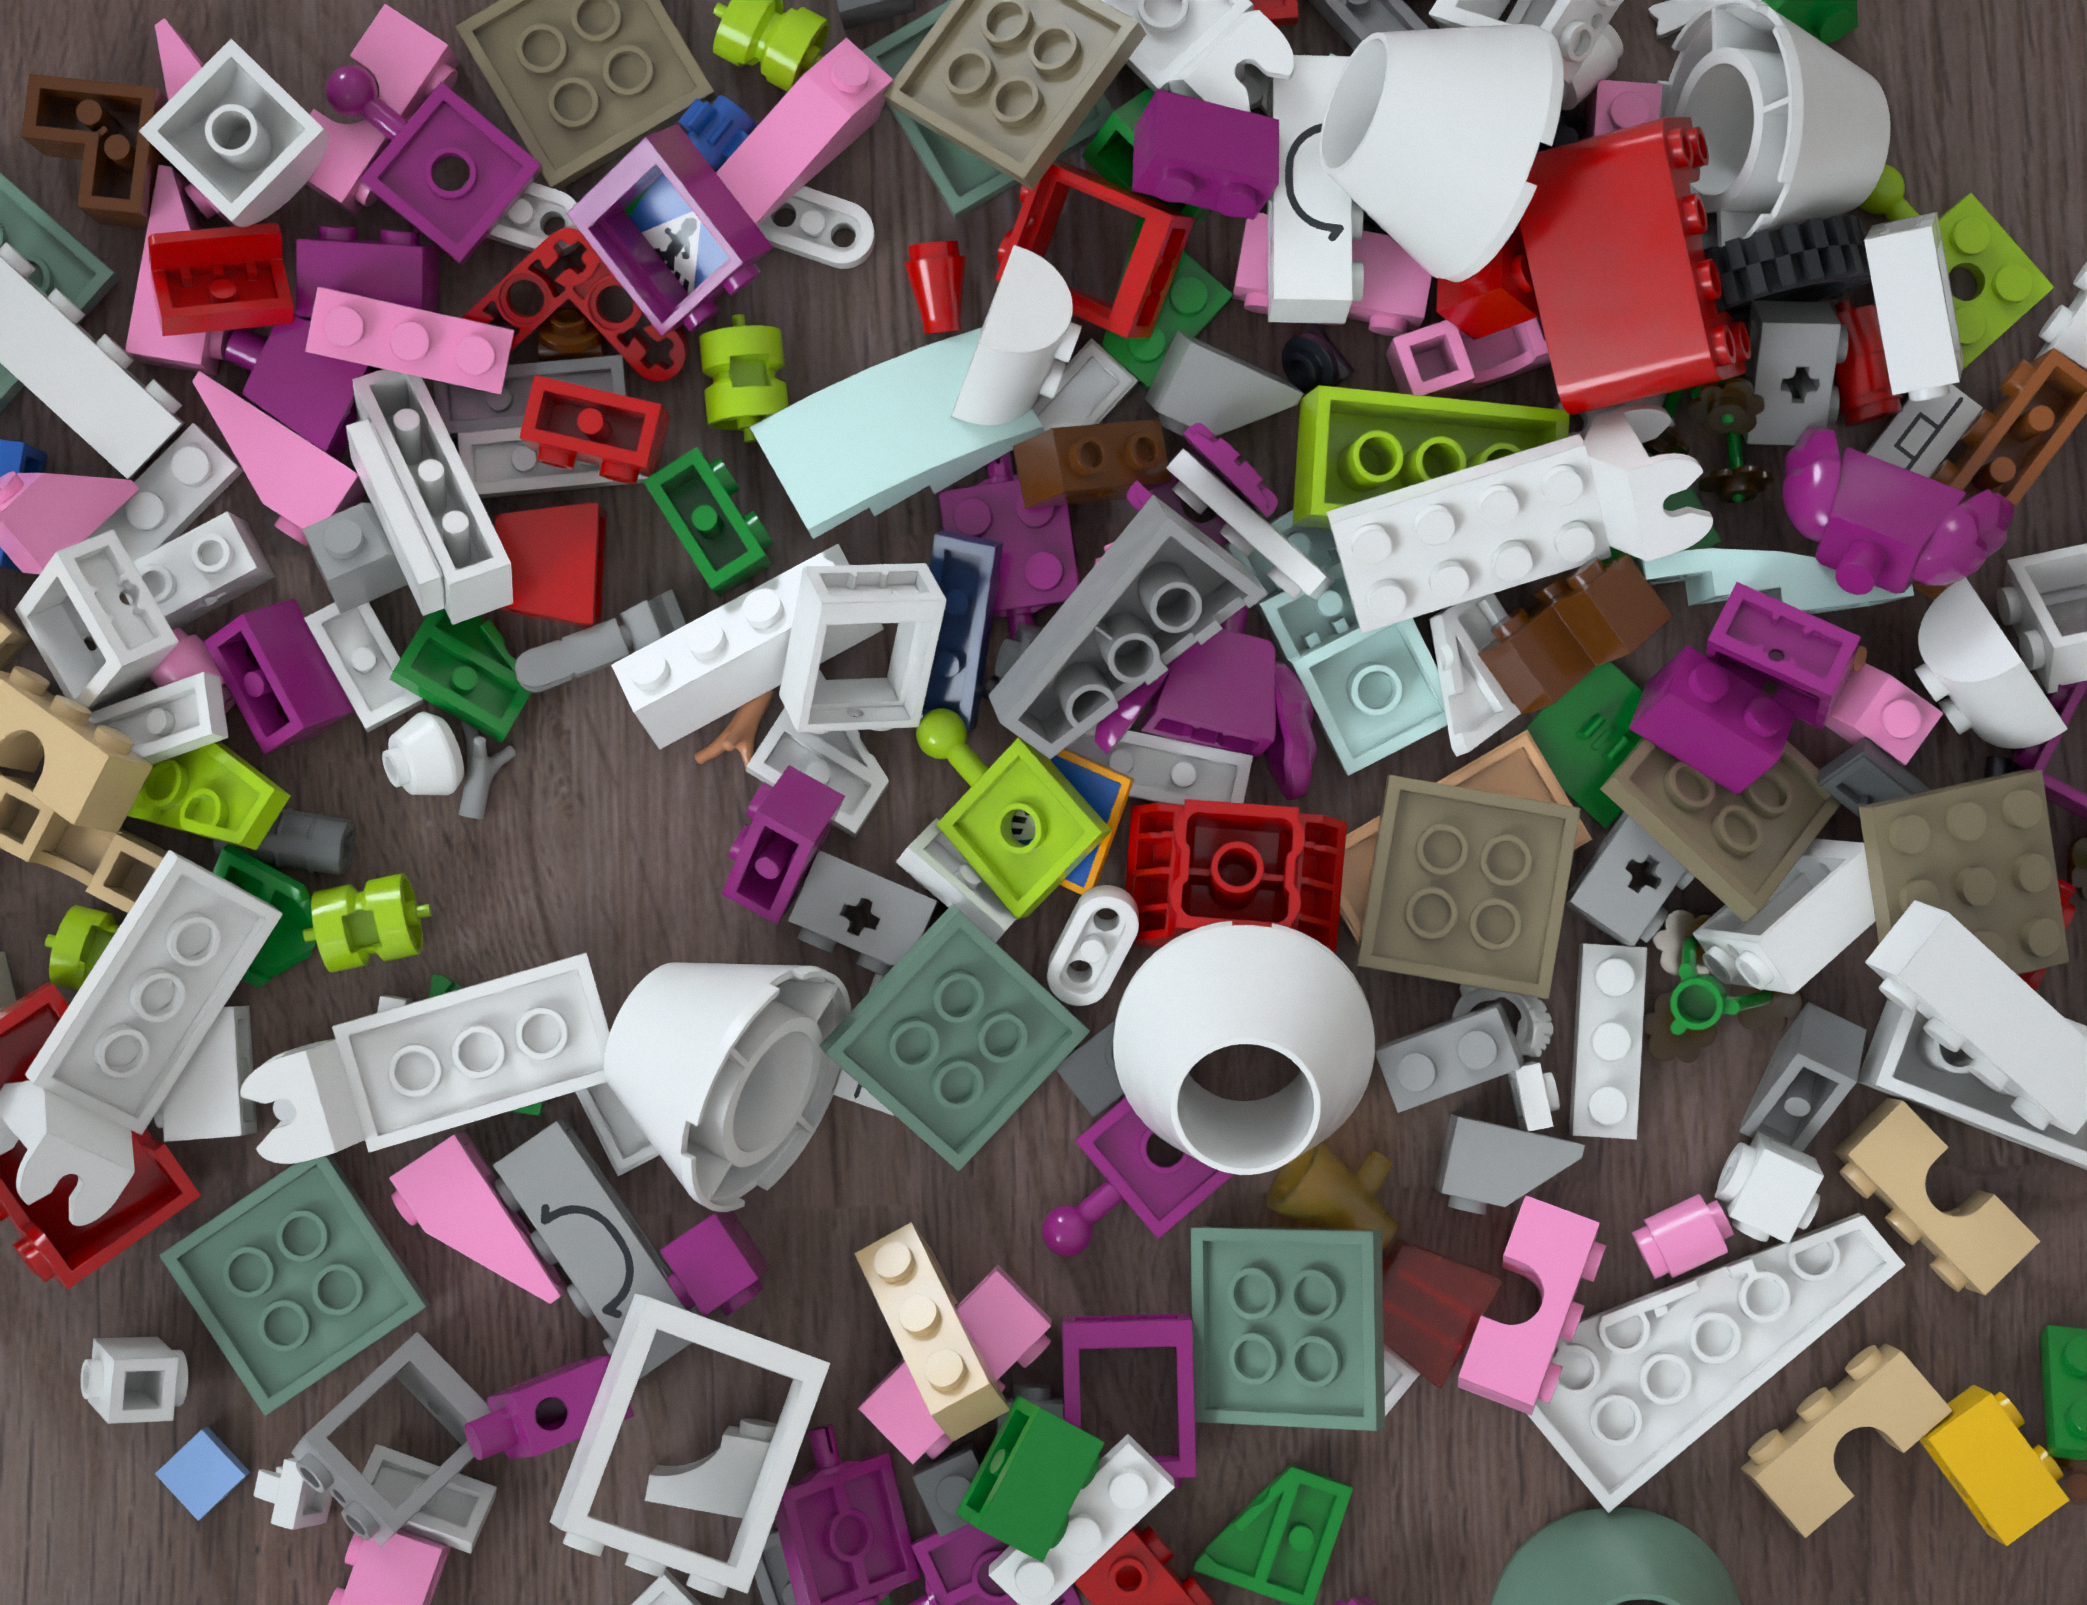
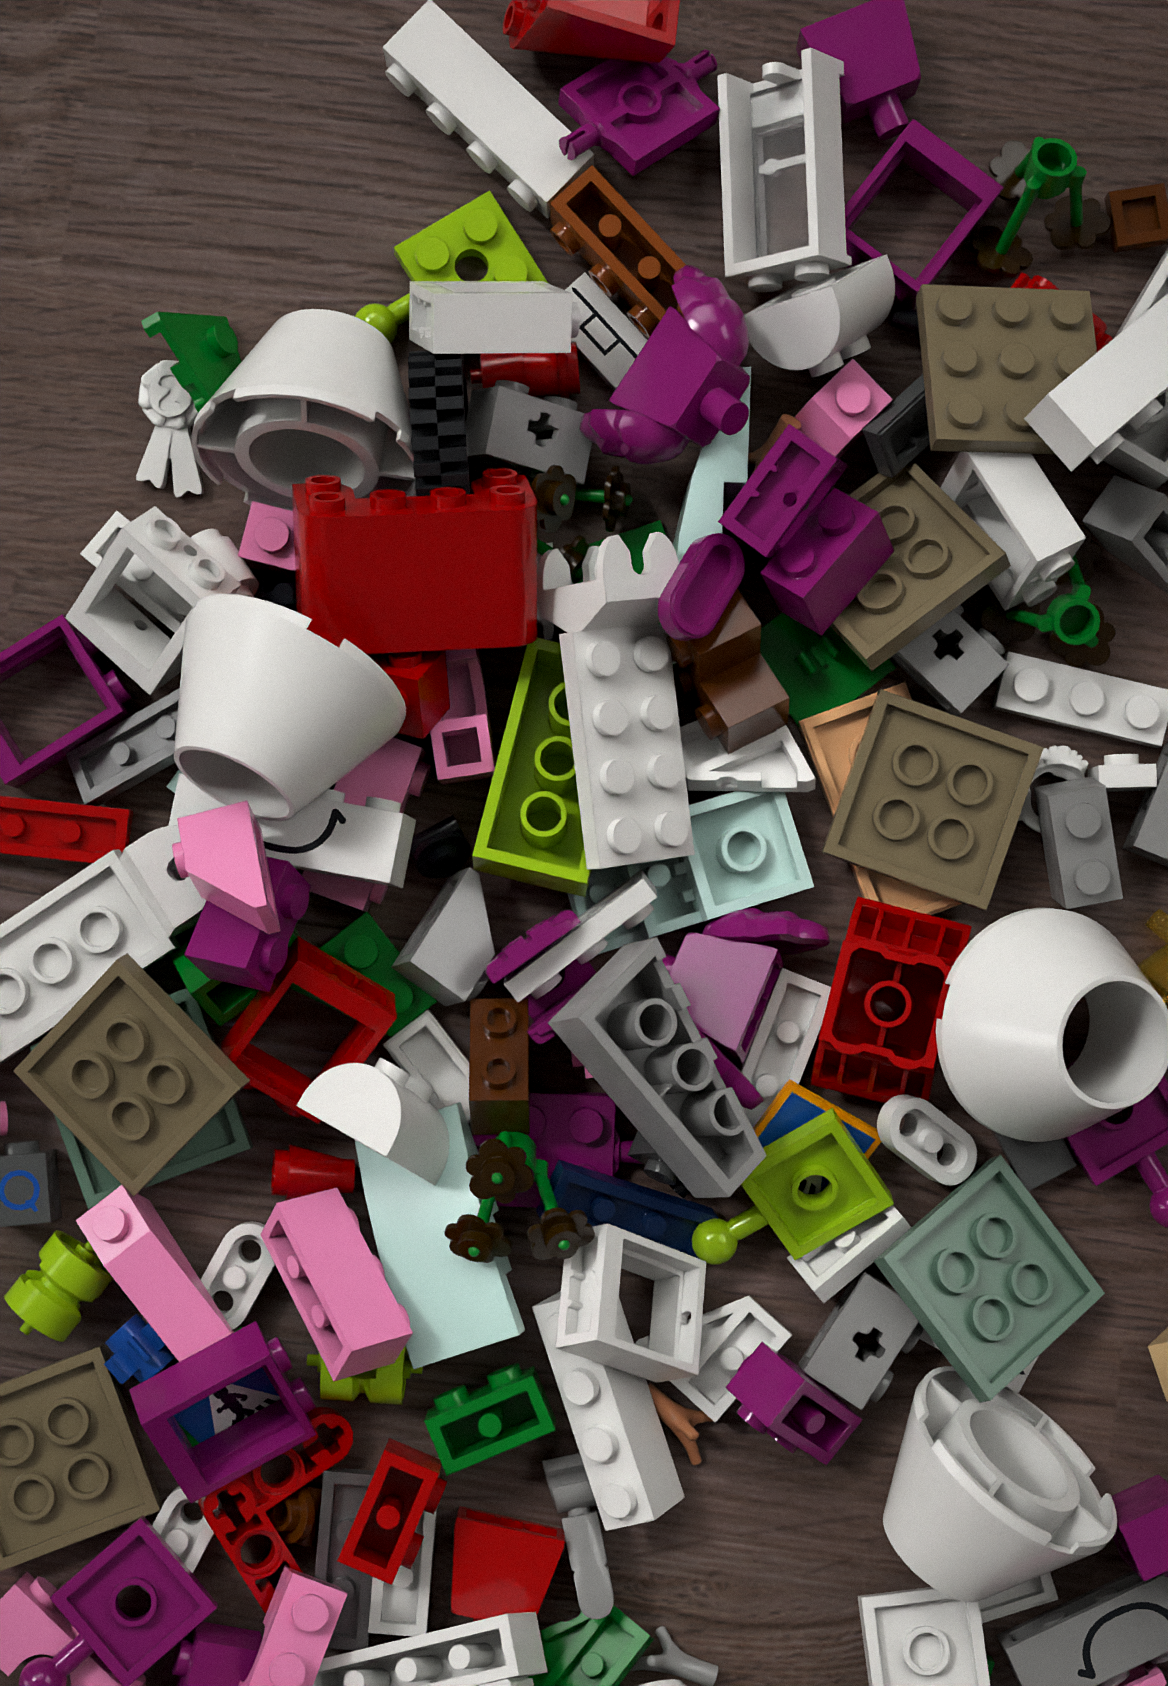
camera: 85 degrees left, 0 degrees up
(828, 327) = (336, 1283): none -> bright pink brick
(985, 489) = (498, 1173): none -> dark brown plant
(1267, 117) = (228, 863): none -> bright pink slope
(1660, 579) = (701, 587): none -> magenta tile

